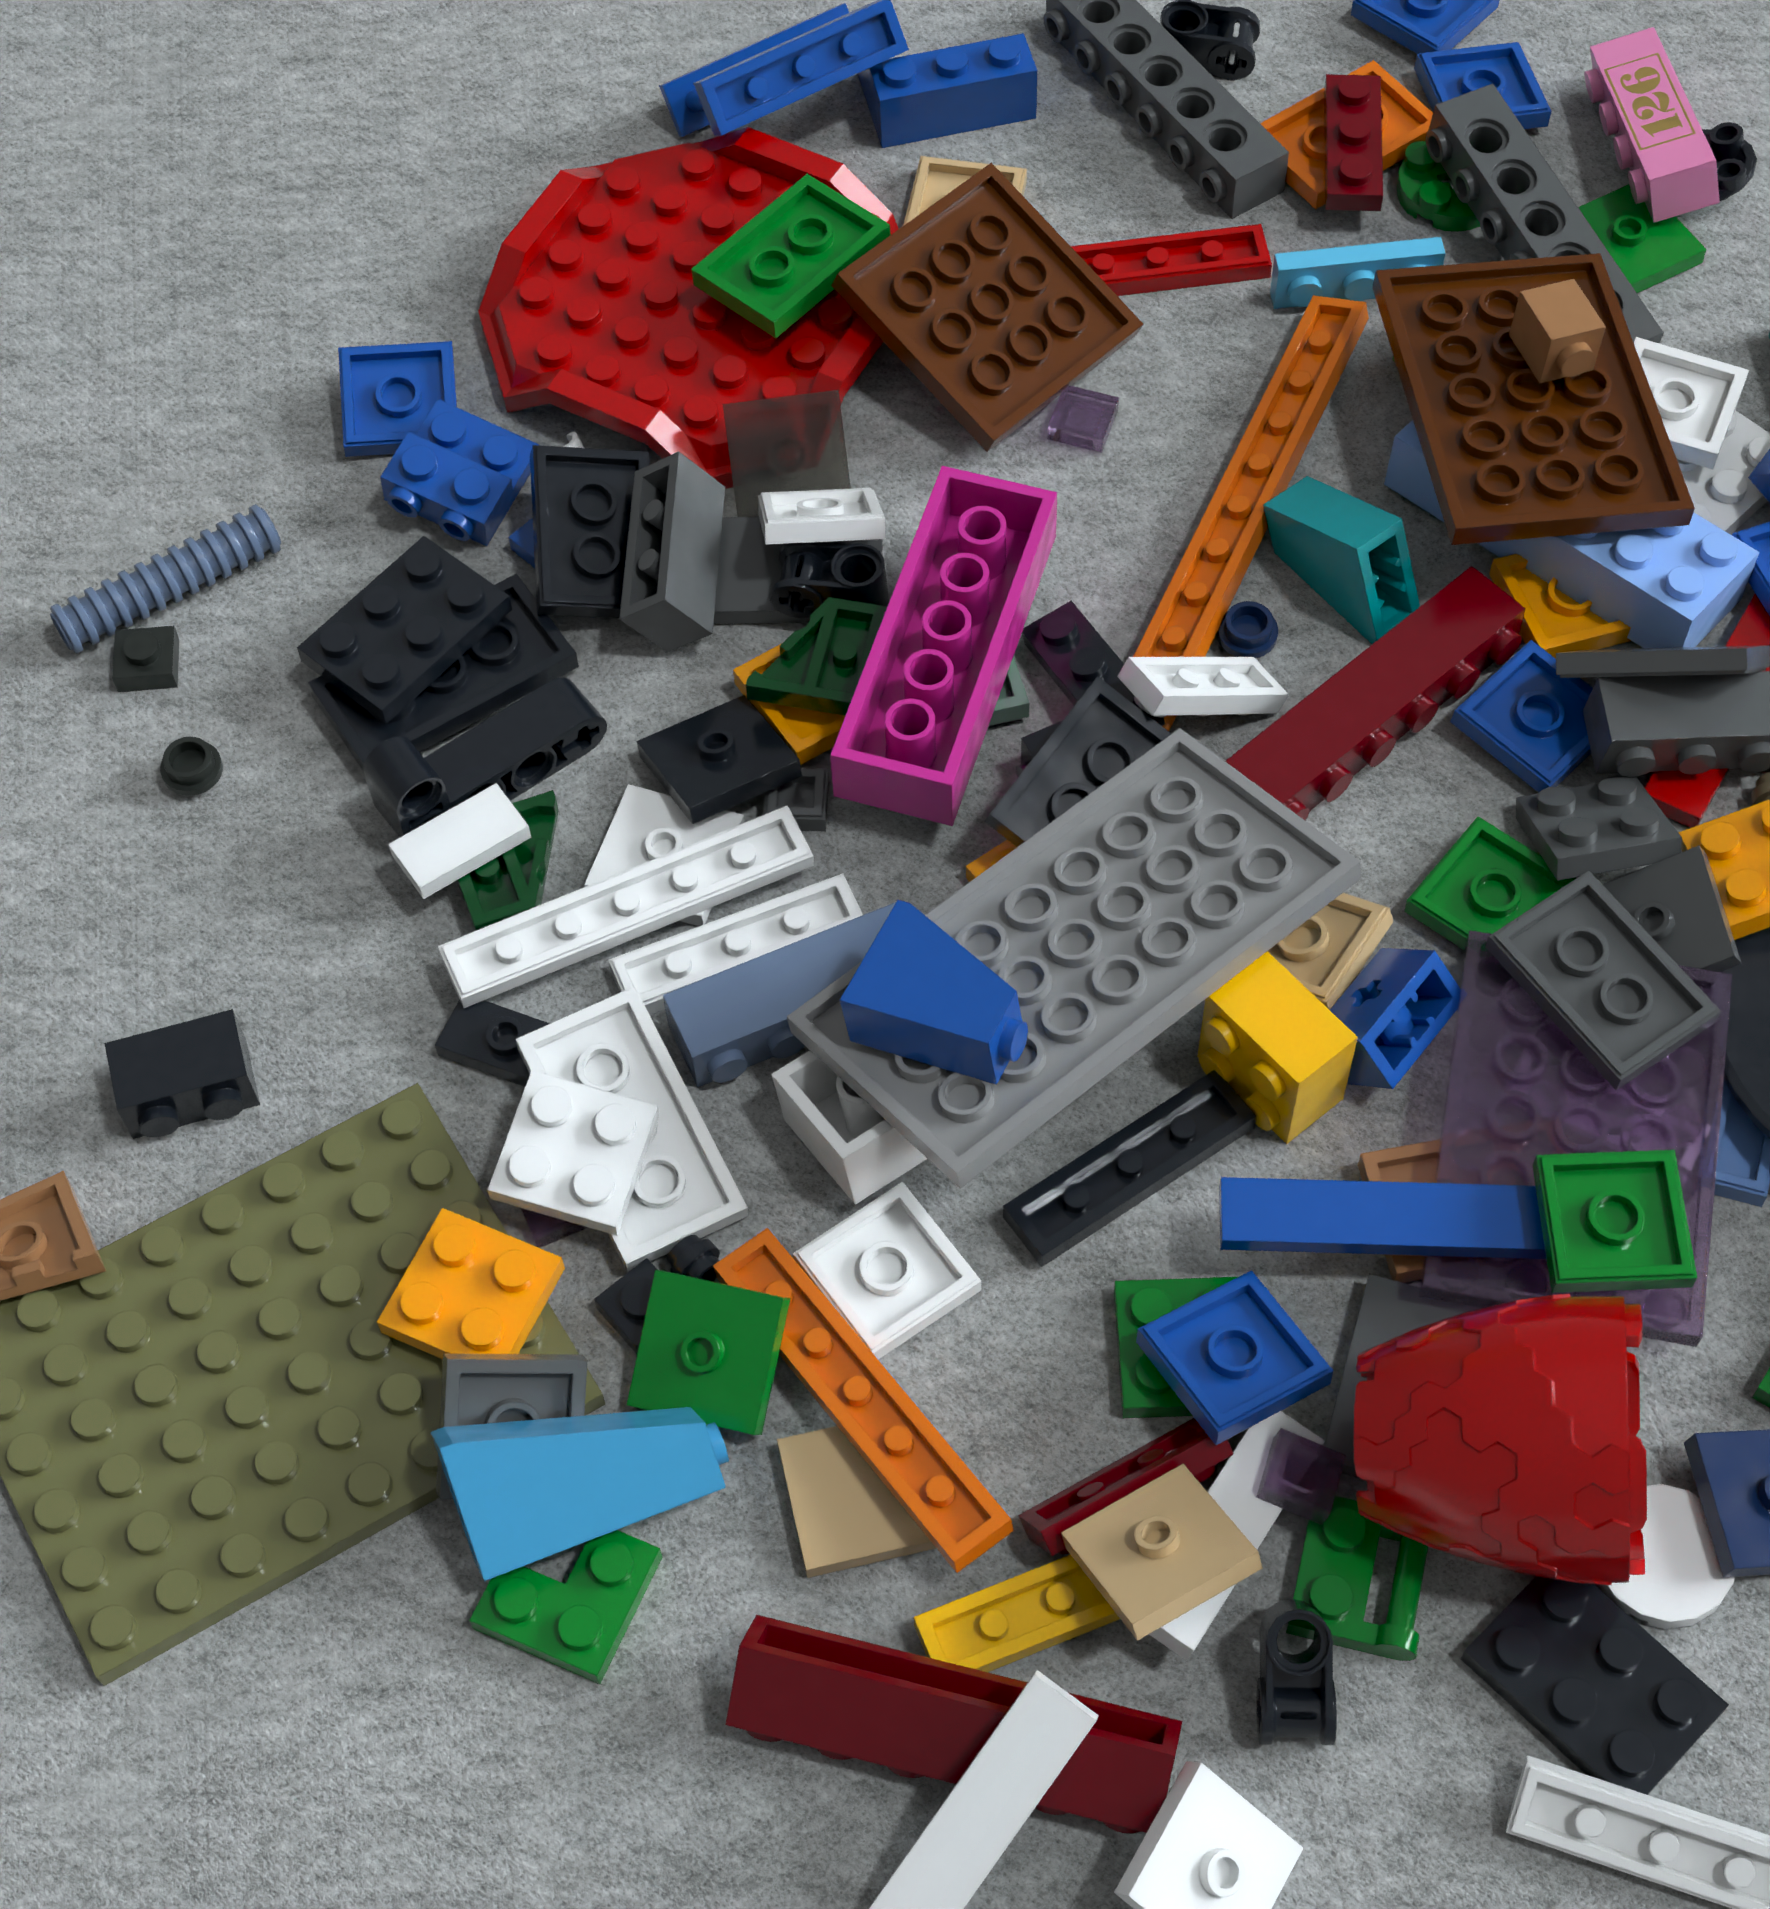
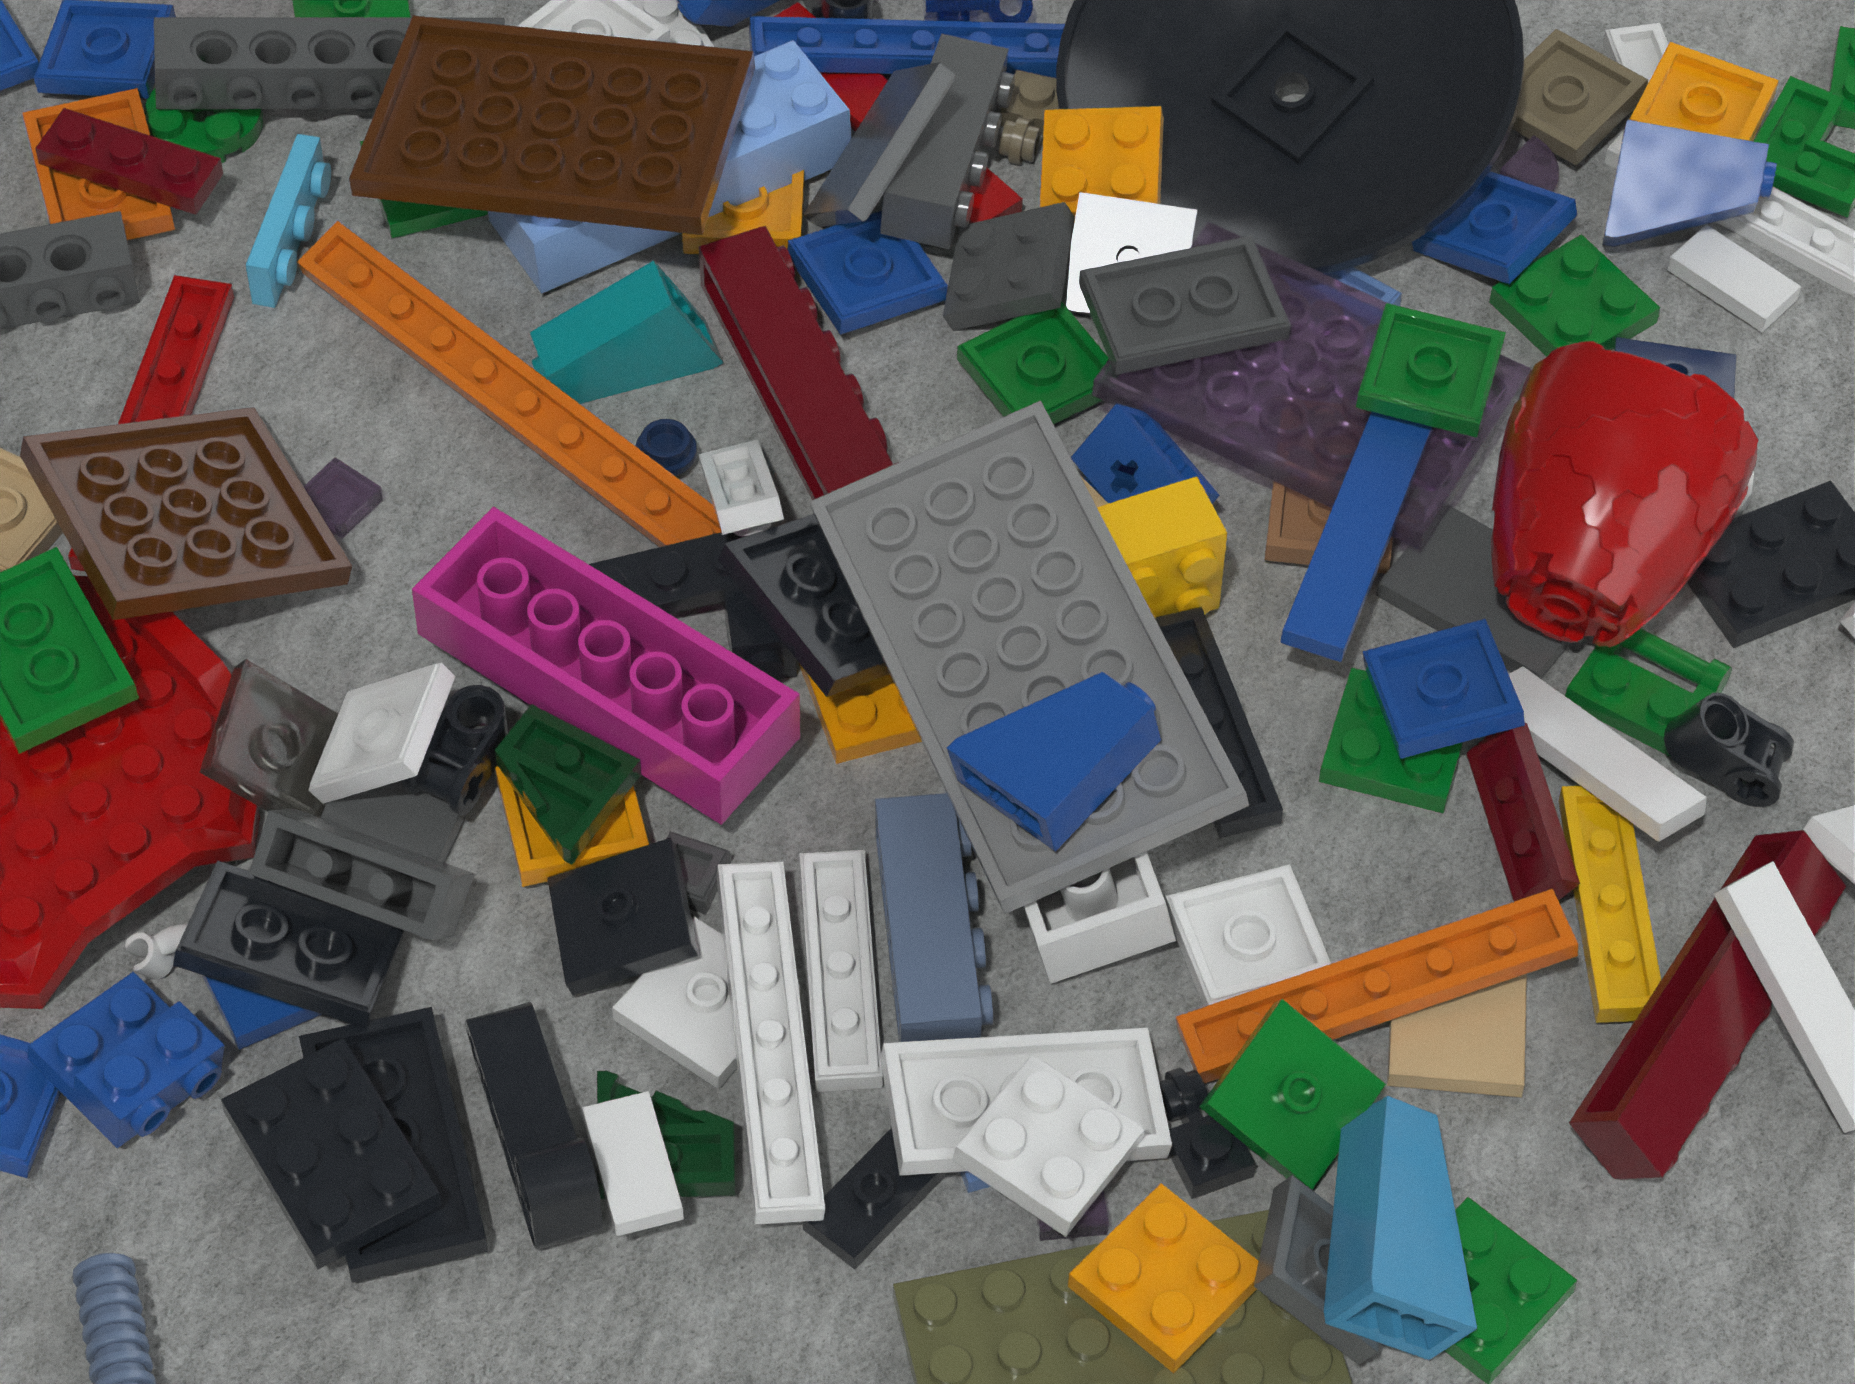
camera: 75 degrees left, 5 degrees down
(1161, 1551) = (1616, 788): tan plate -> none
(1301, 1476) = (1560, 684): clear purple tile -> none
(1557, 330) = (518, 65): medium nougat brick -> none

